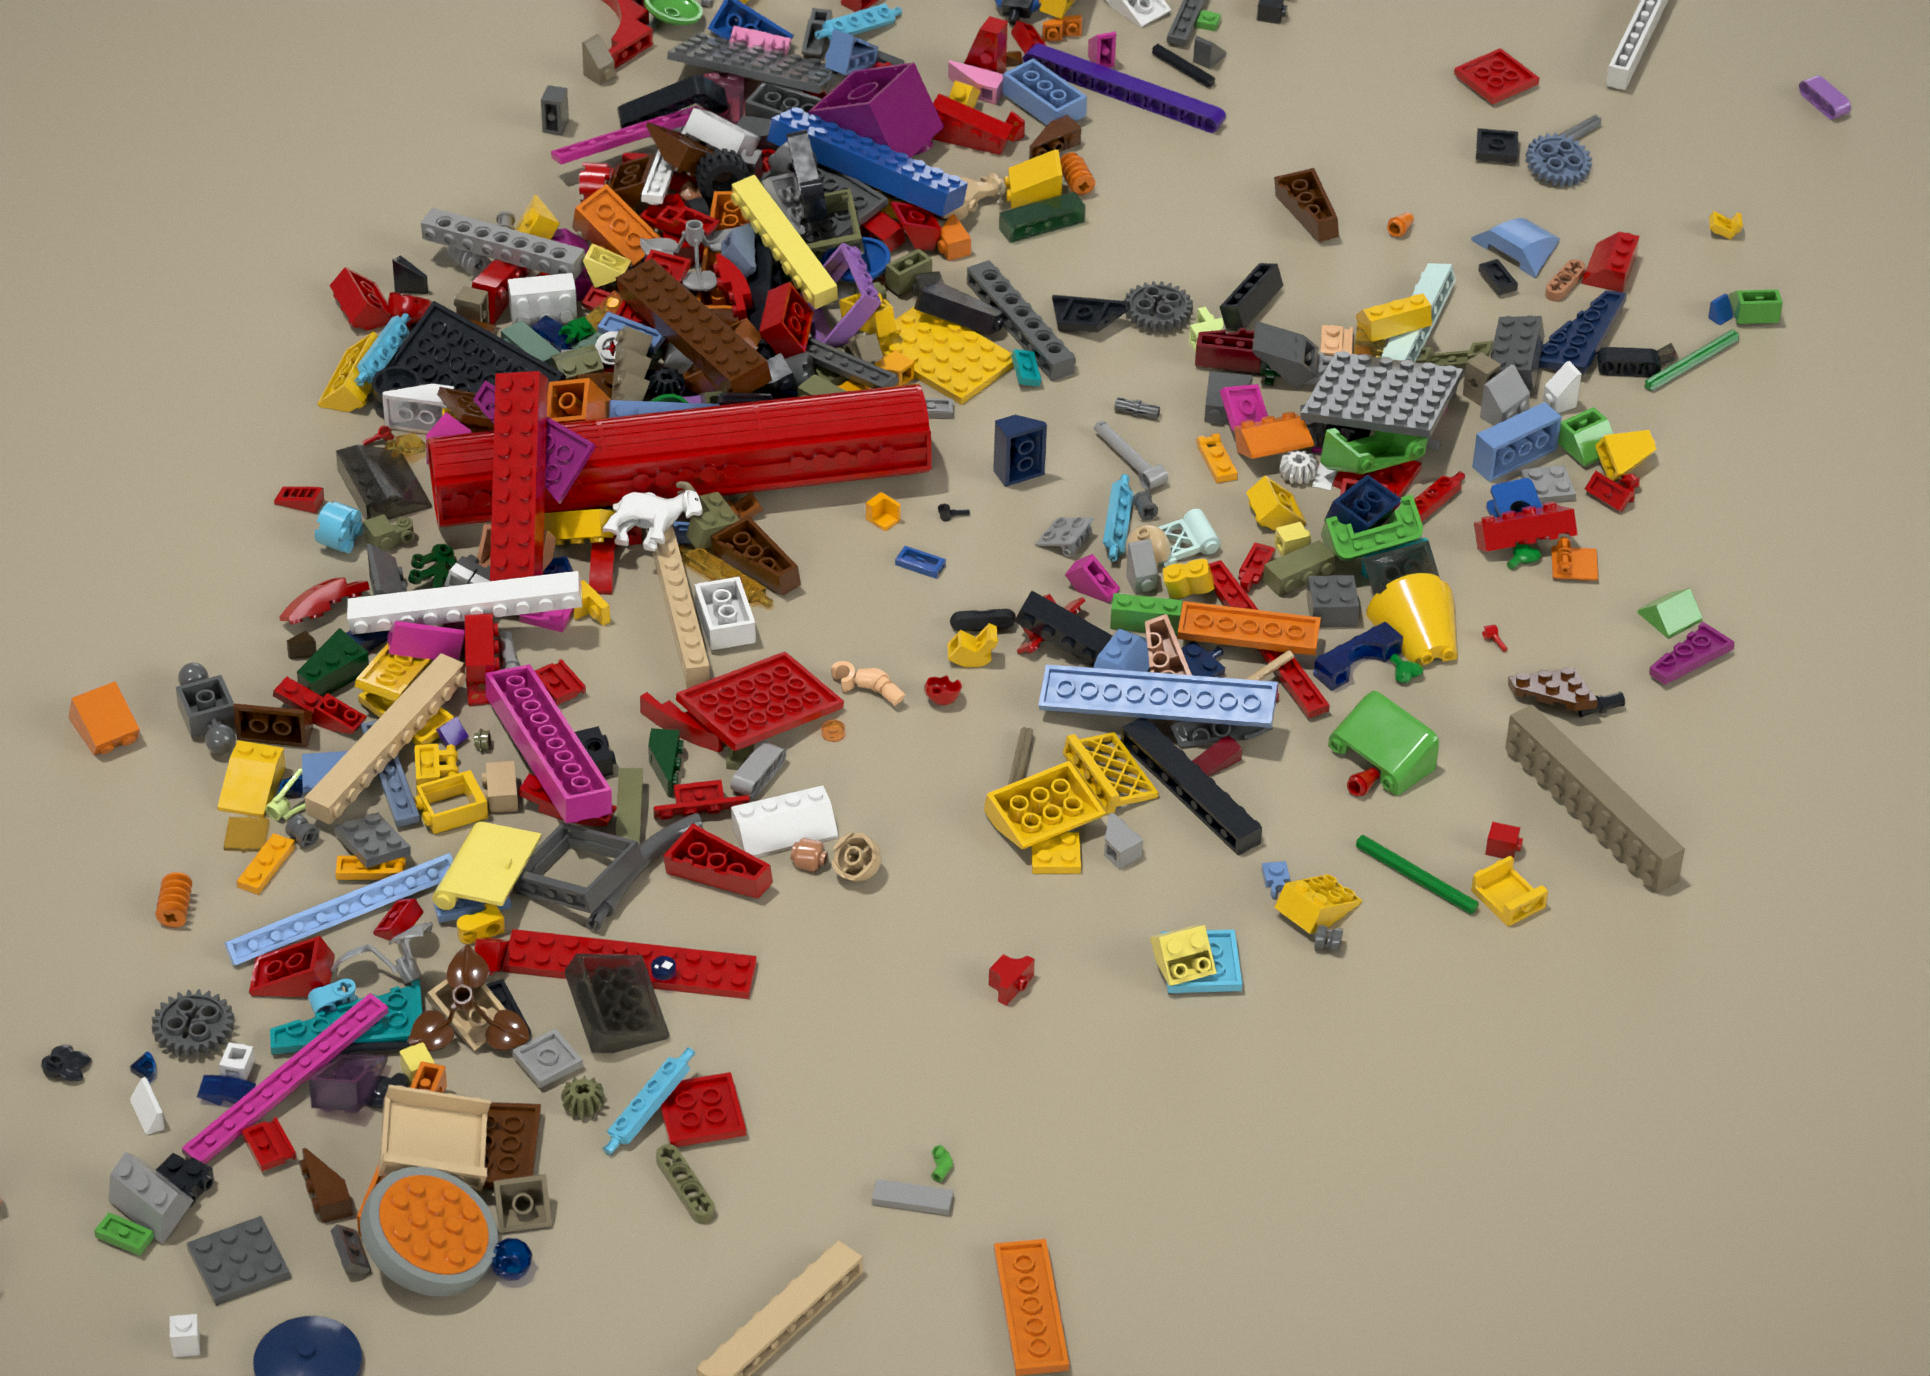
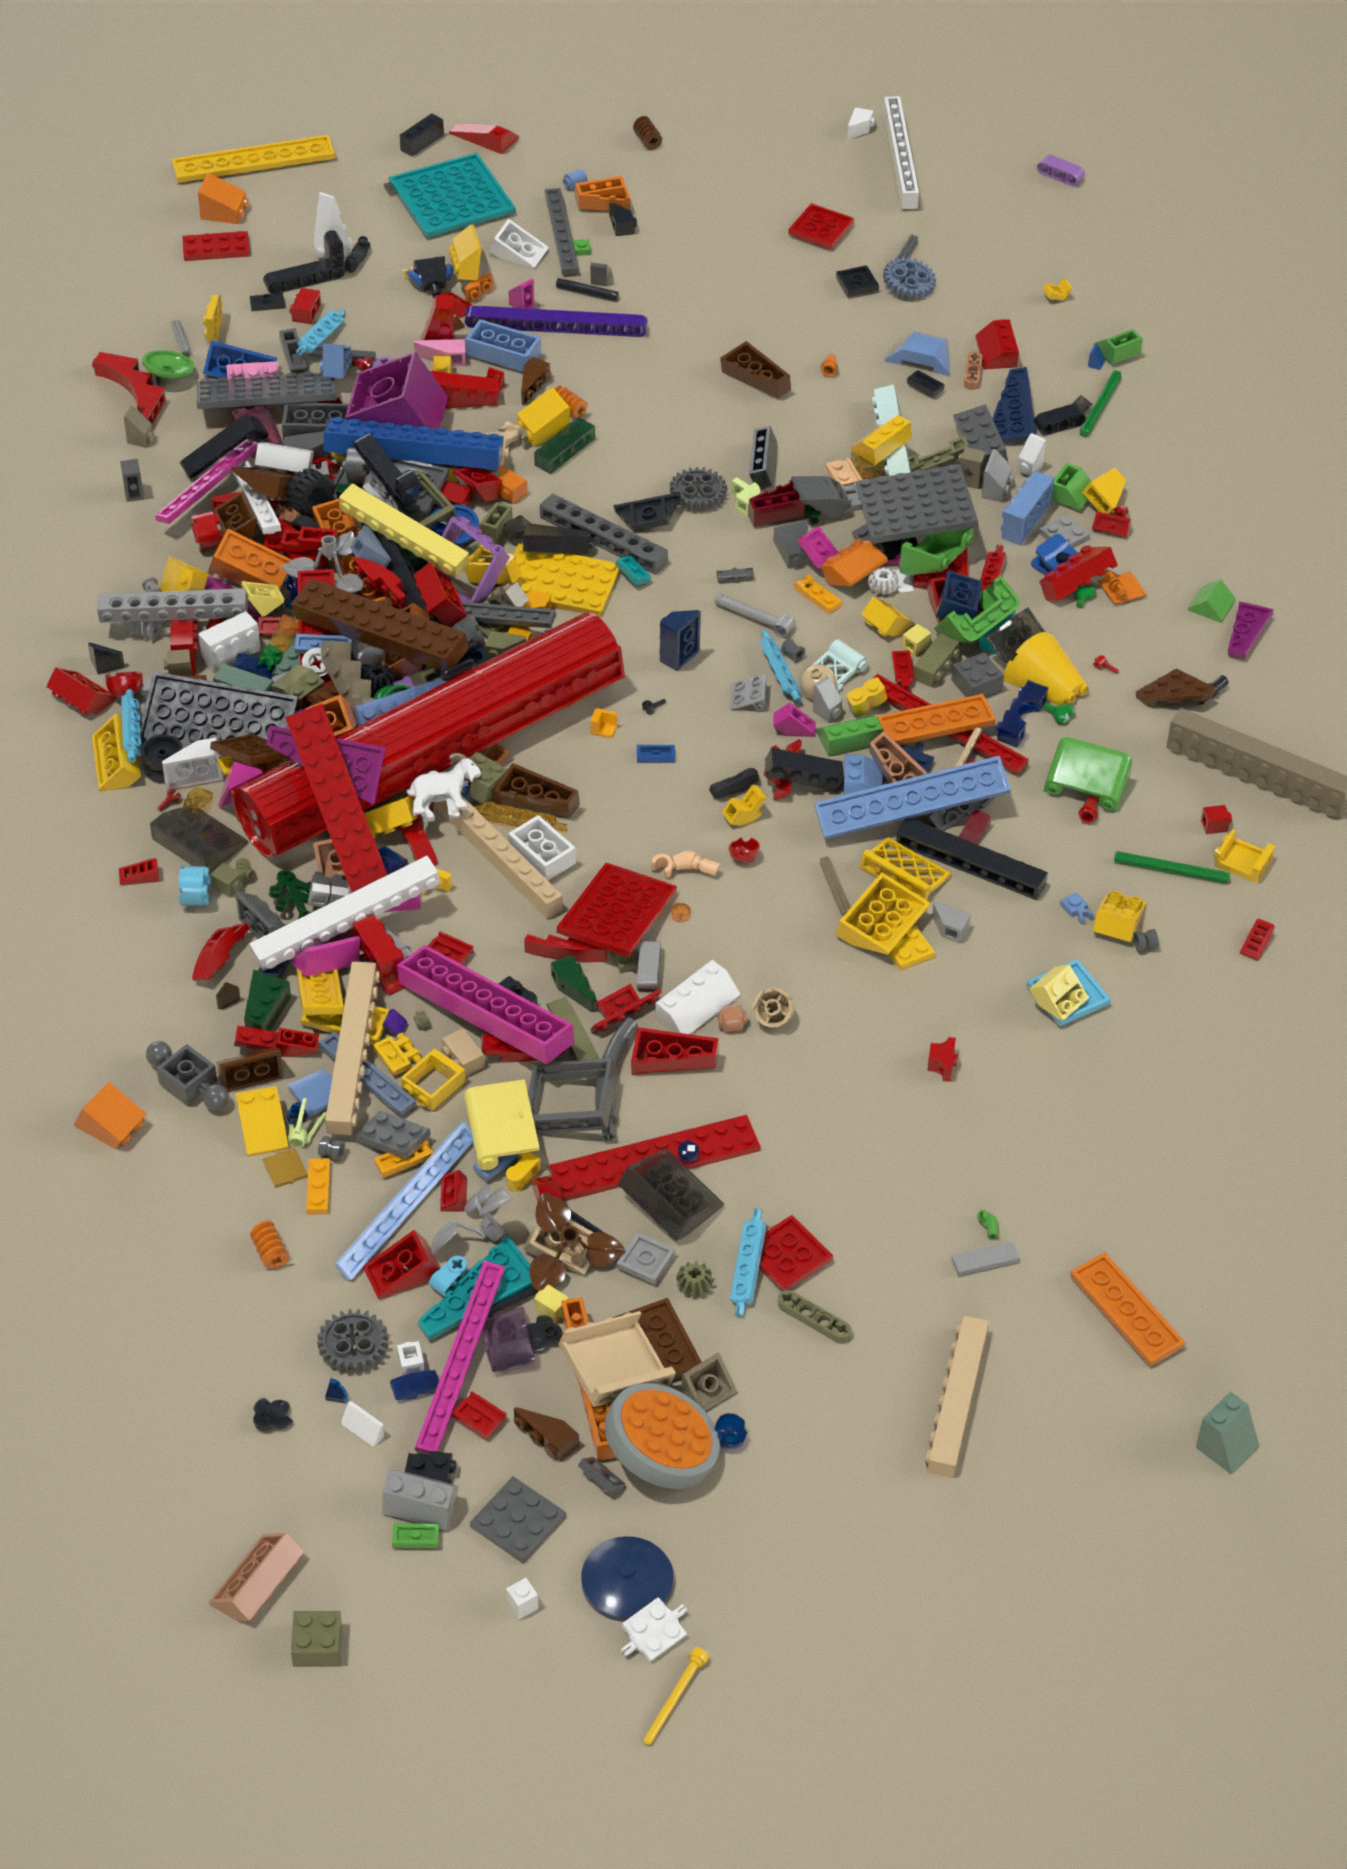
camera: 25 degrees left, 5 degrees up
(1472, 973) = (1262, 929): none -> red slope

